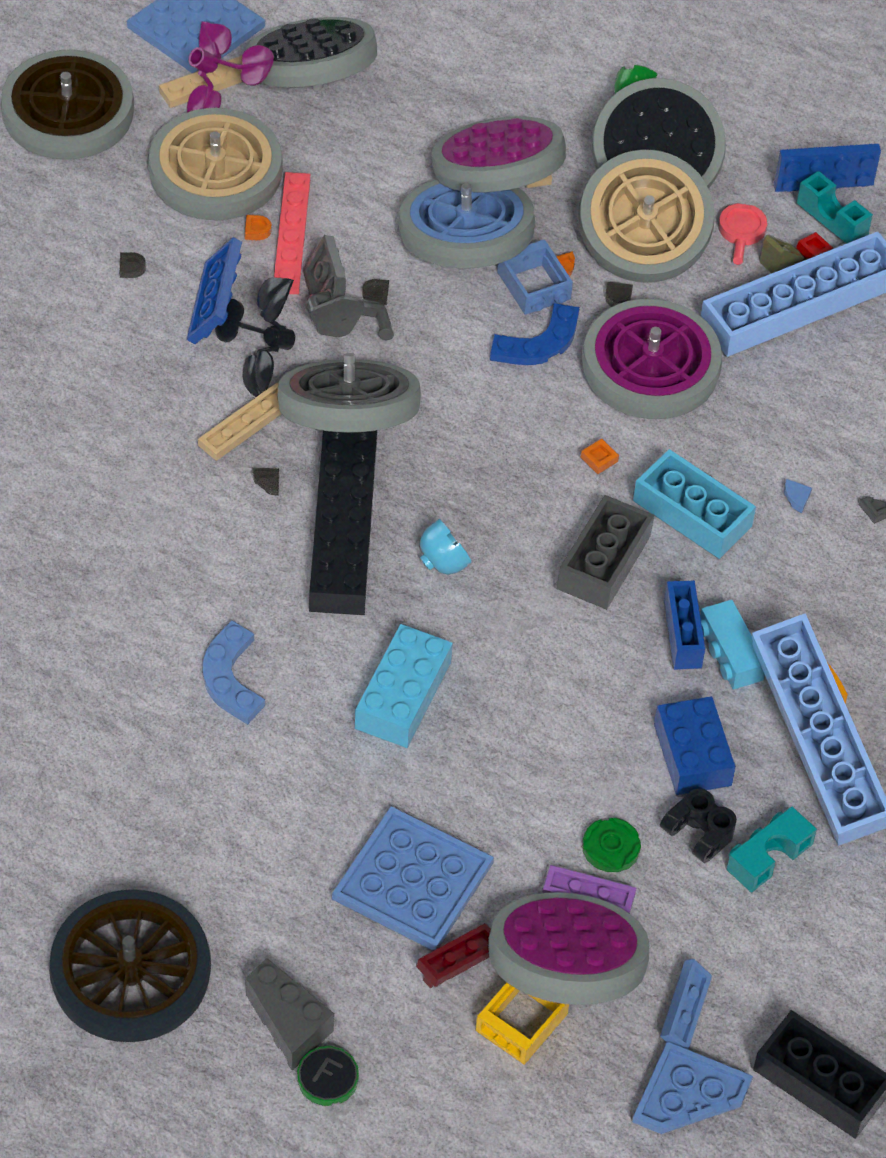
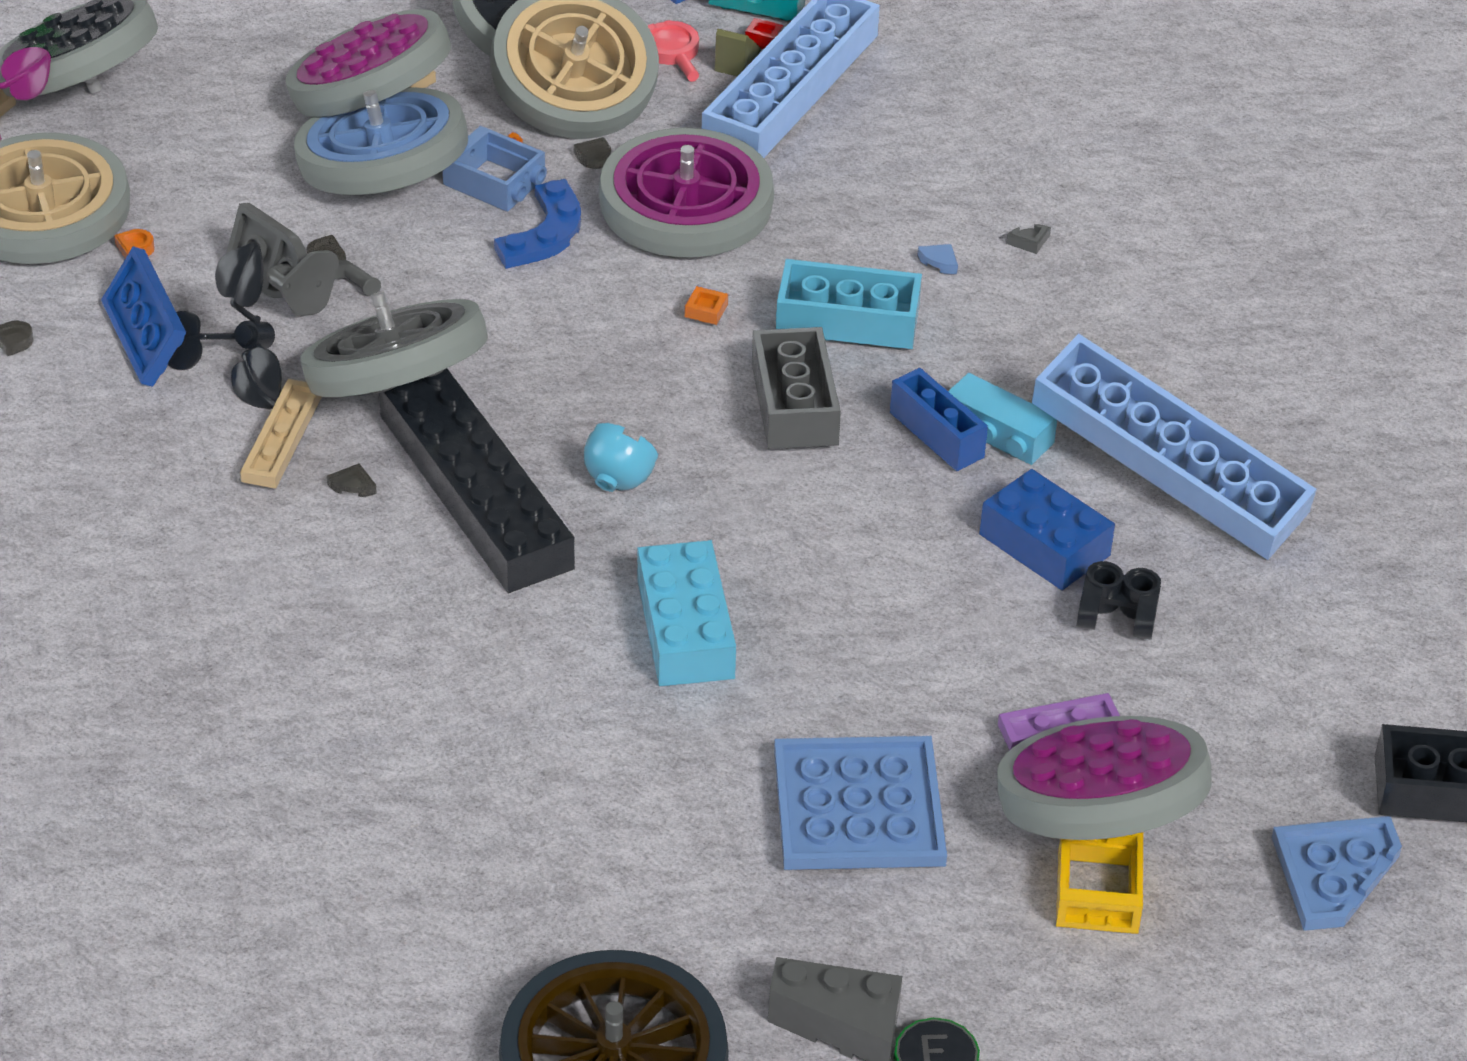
camera: 30 degrees left, 10 degrees down
(219, 677) = (466, 706): medium blue plate -> none
(292, 228) = (177, 230): coral plate -> none
(455, 956) = (978, 855): dark red hinge -> none
(611, 845) = (1039, 668): green tile -> none
(686, 1004) = (1258, 781): medium blue plate -> none
(785, 833) = (1208, 590): teal arch -> none

